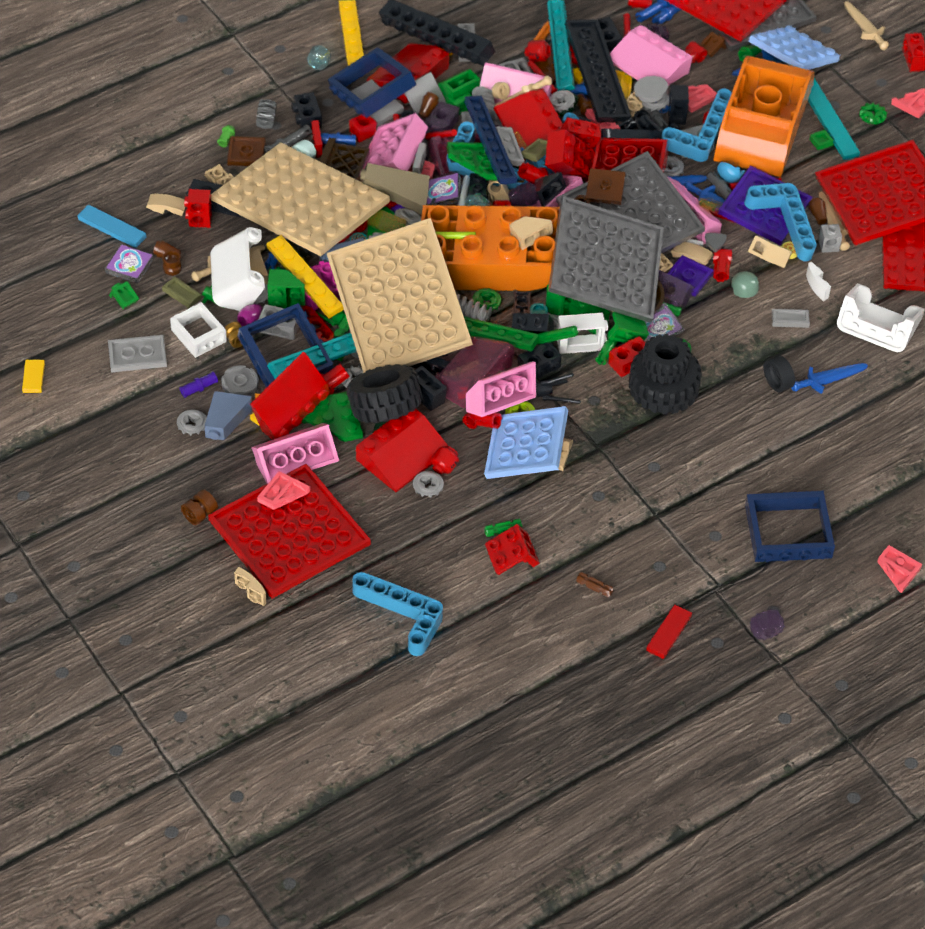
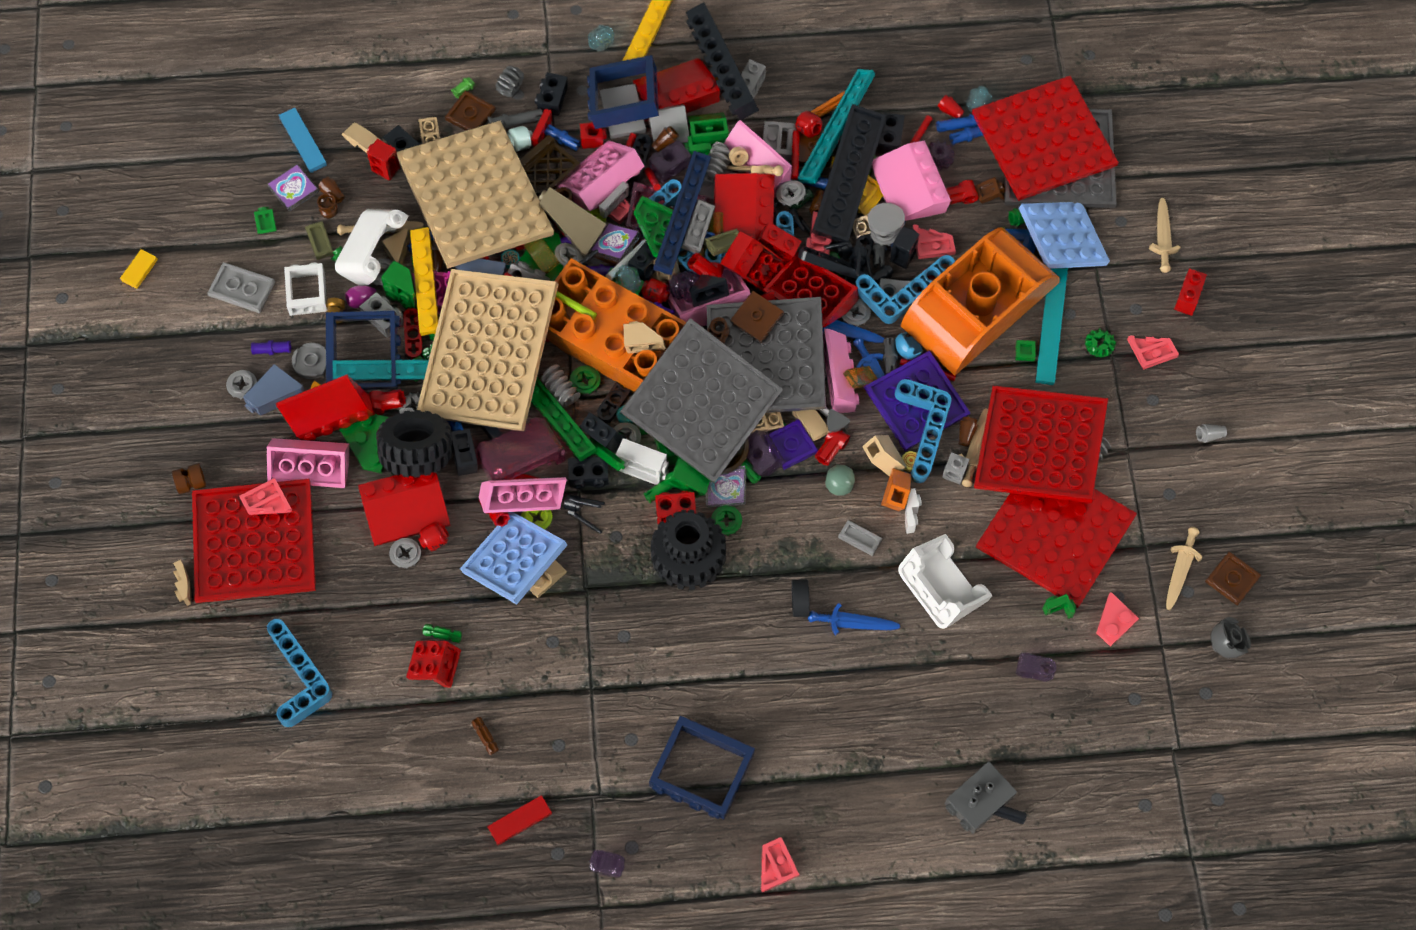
camera: 30 degrees right, 15 degrees up
(798, 272) = (897, 490): none -> orange slope

